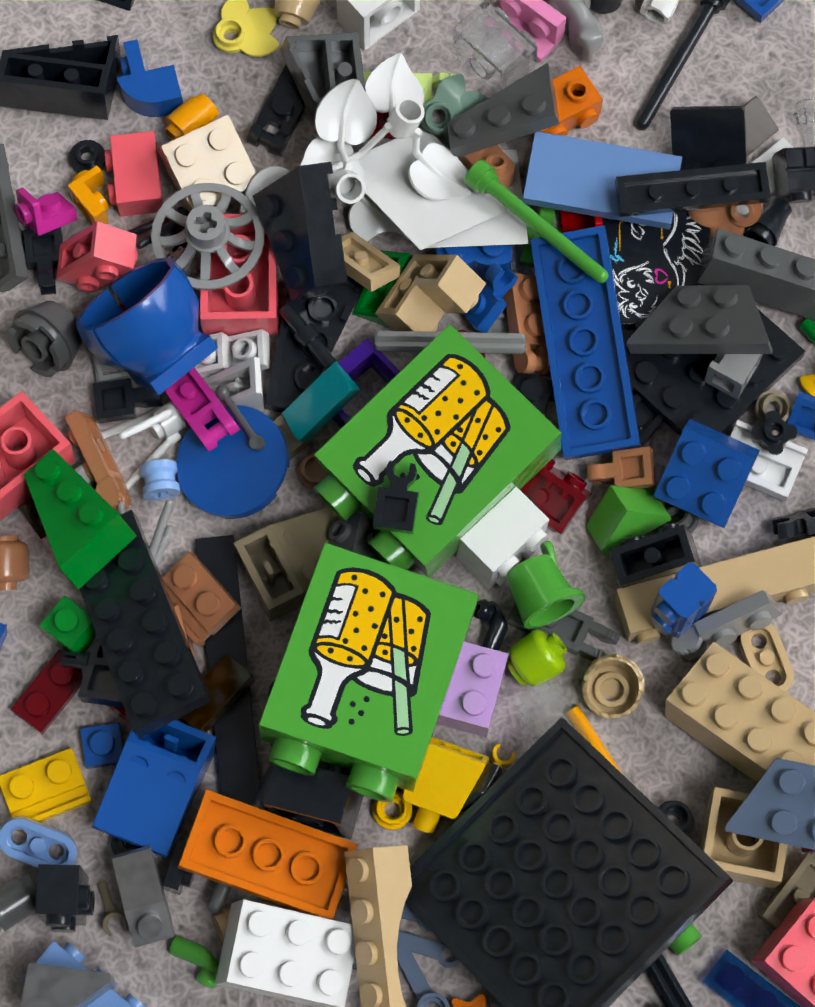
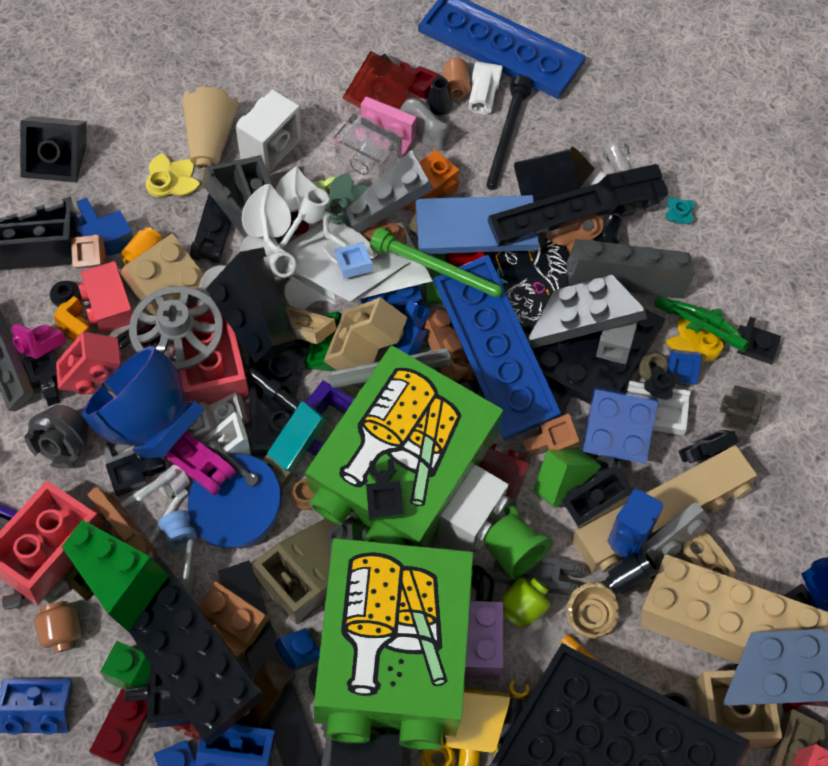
camera: 15 degrees left, 10 degrees down
(125, 111) = (88, 251): none -> tile
(264, 650) = (298, 649): none -> blue plate
(438, 196) = (353, 260): none -> light blue plate
(667, 655) = (631, 573): none -> black brick

